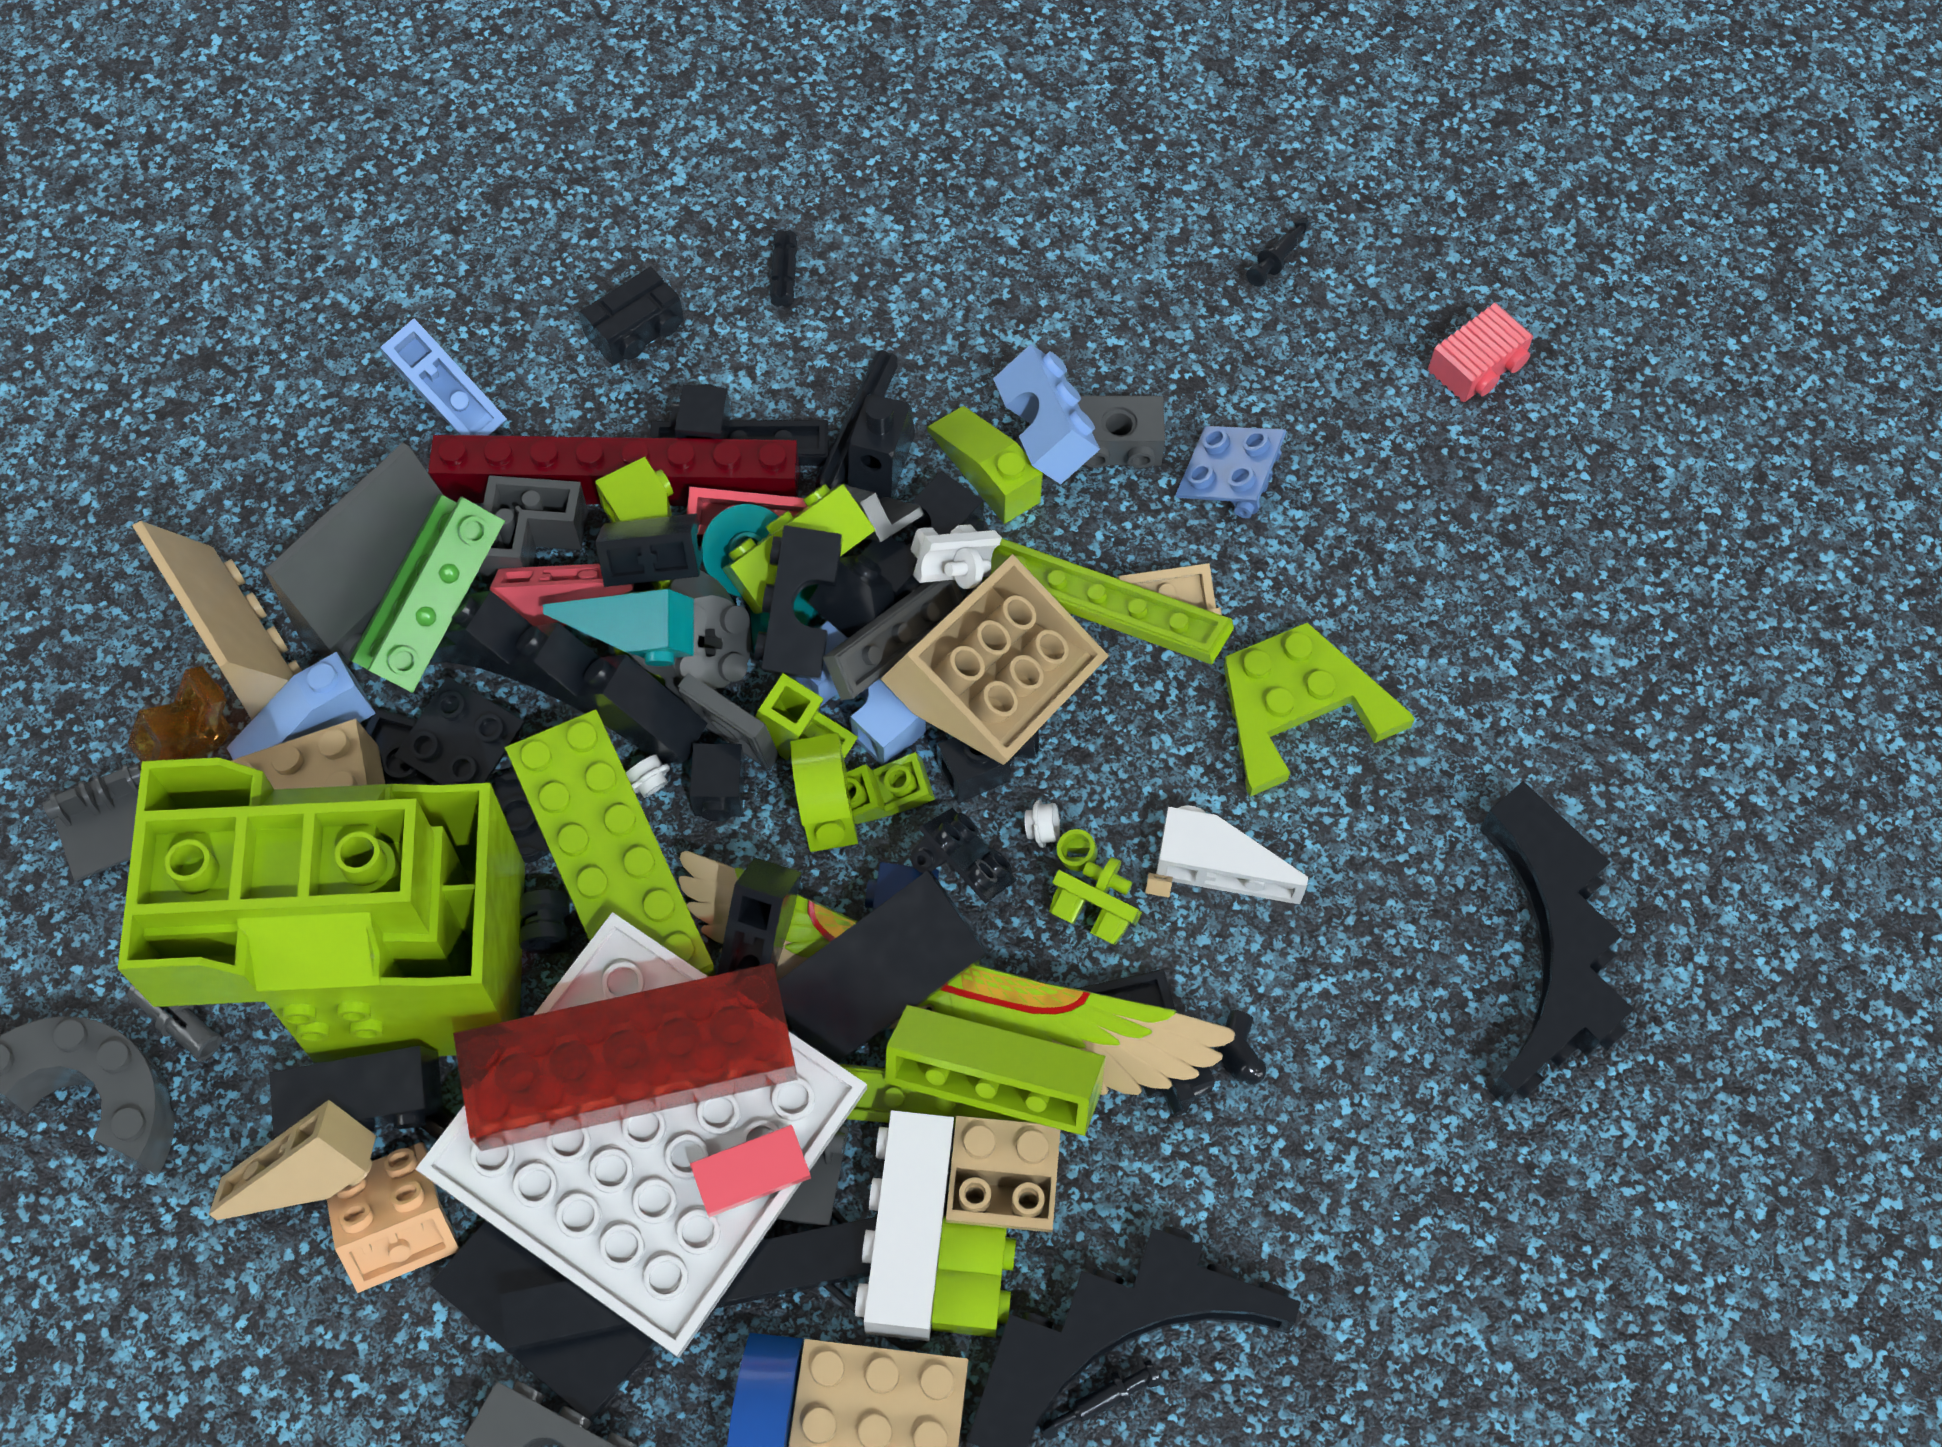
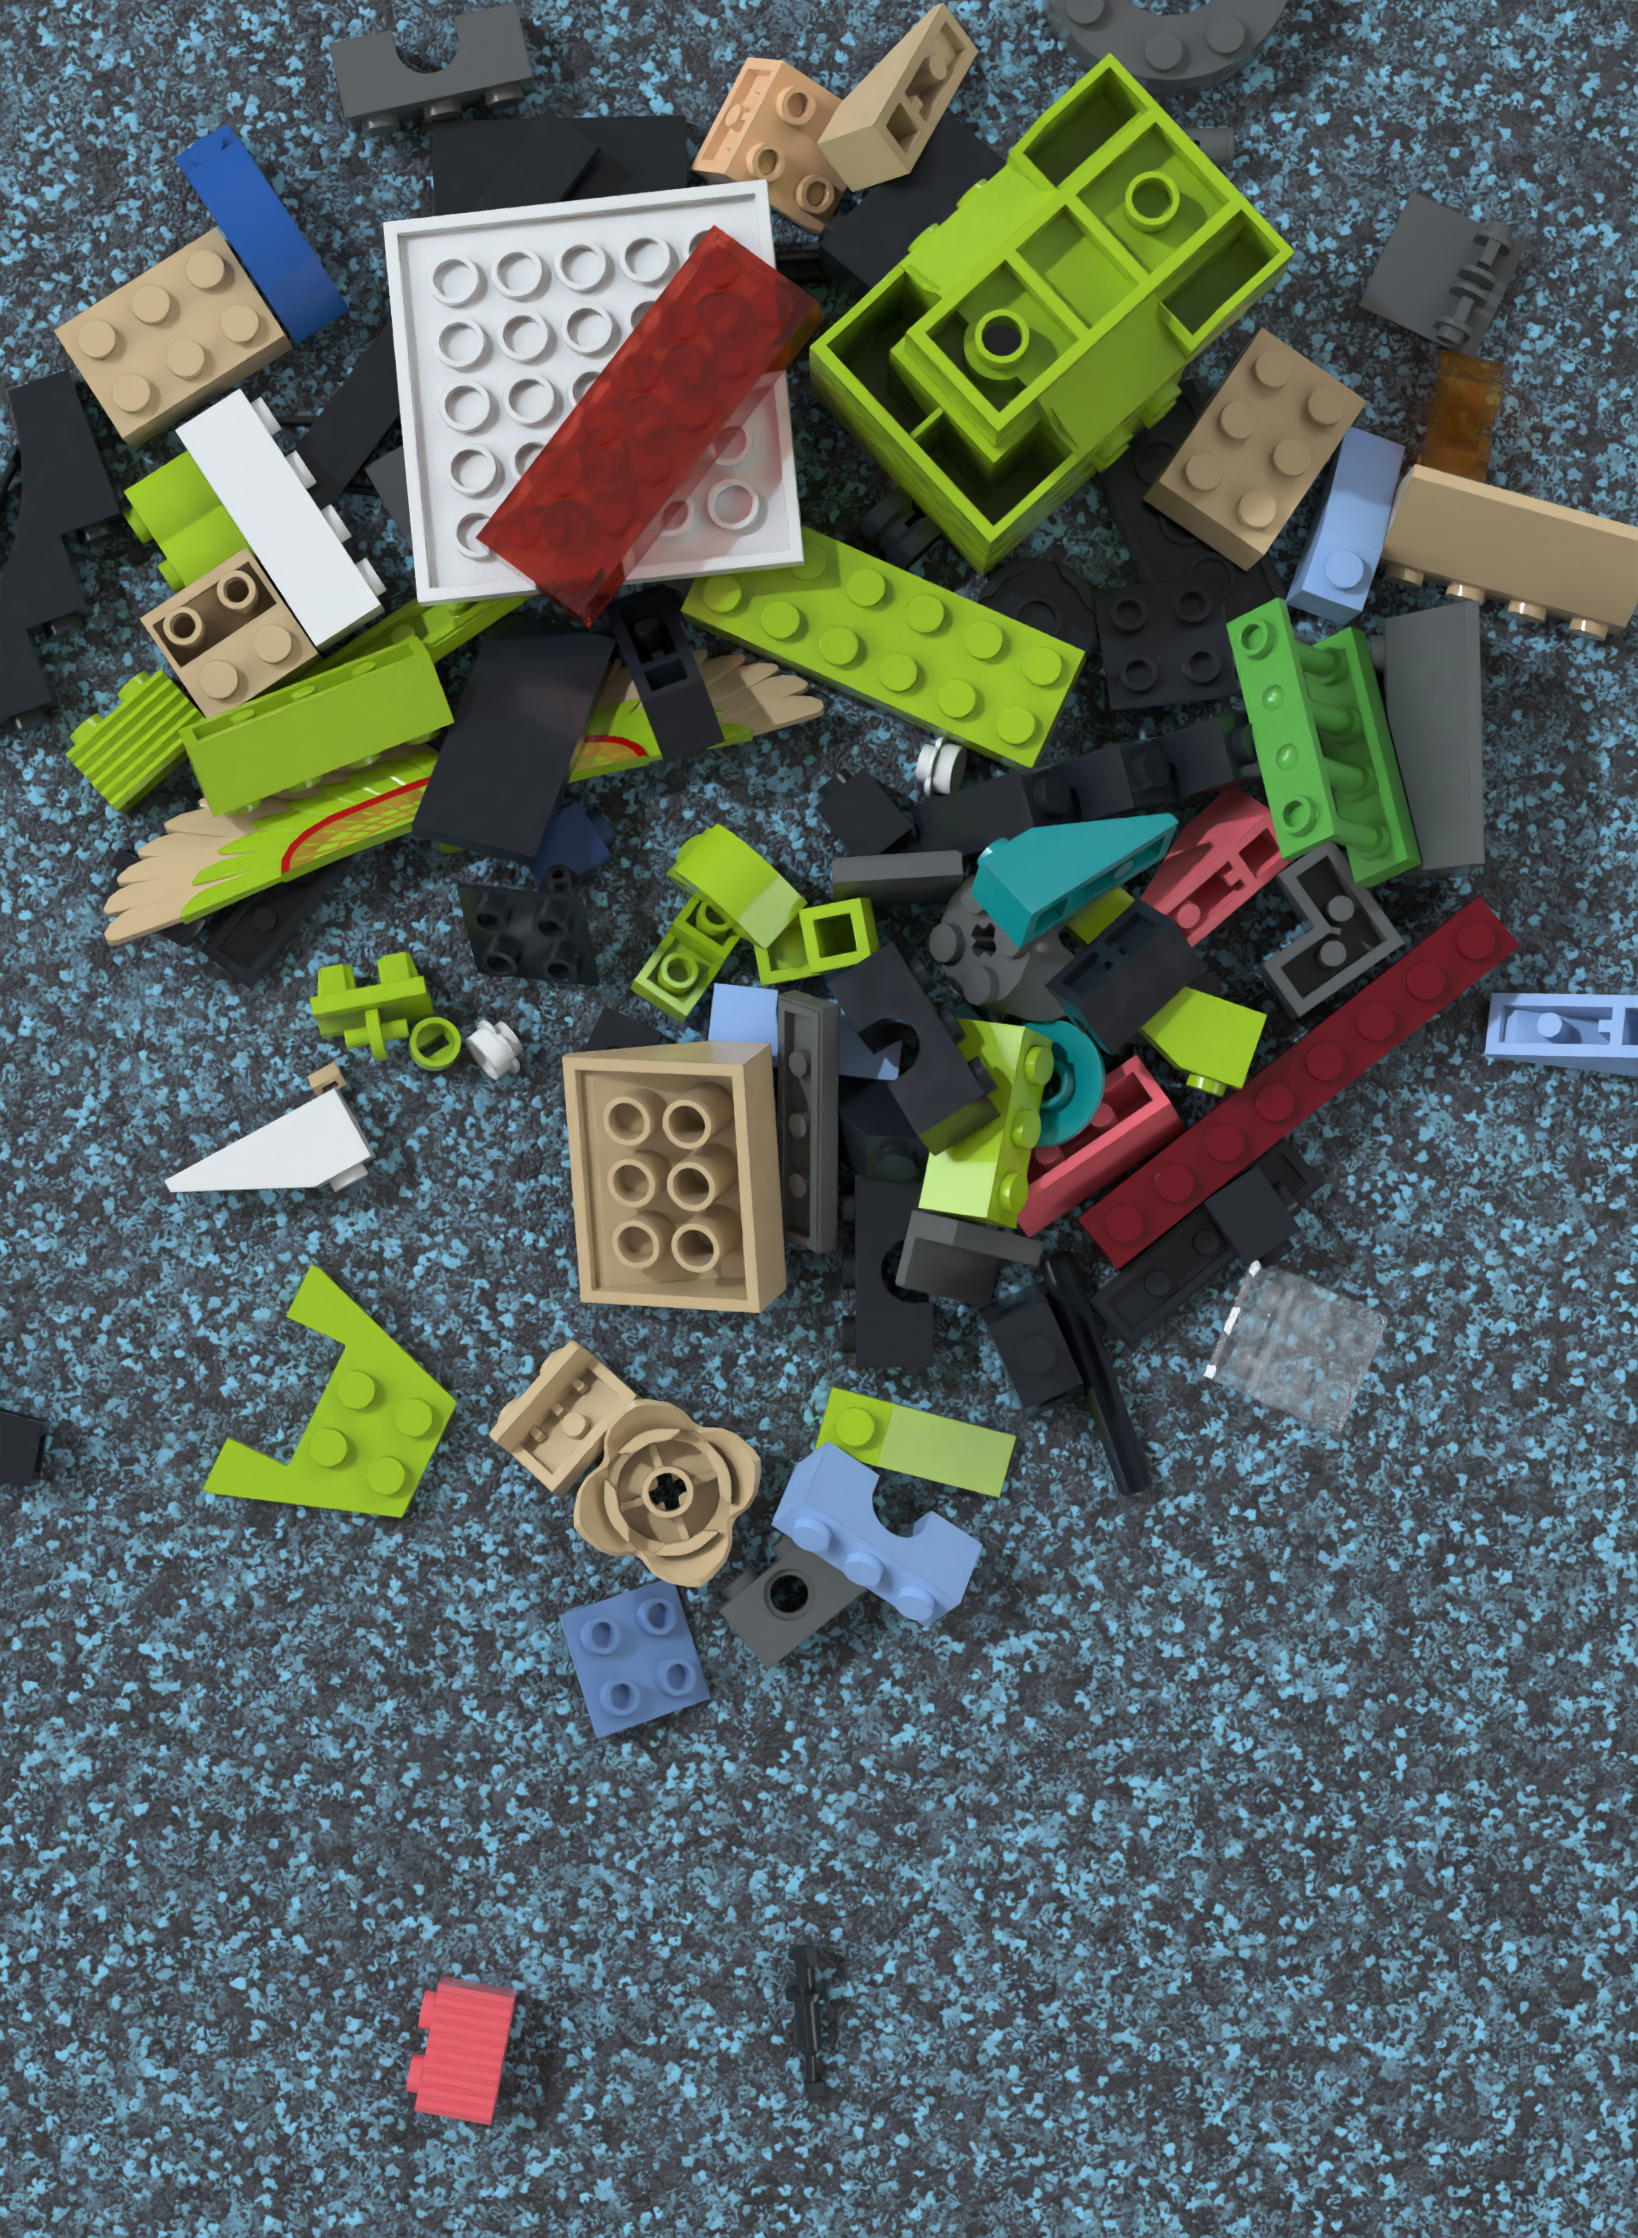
camera: 140 degrees right, 25 degrees up
(632, 316) = (1464, 1296): black brick -> none
(746, 358) = (1296, 1346): none -> clear bracket
(750, 1171) = (452, 429): coral tile -> none
(783, 268) = (1361, 1514): black axle -> none
(954, 556) = (808, 1255): white hips -> none
(1114, 1168) = (136, 742): none -> lime brick
(1123, 604) = (630, 1350): lime tile -> none
(1148, 494) = (677, 1543): none -> tan brick
(1238, 1055) = (116, 961): black arm -> none

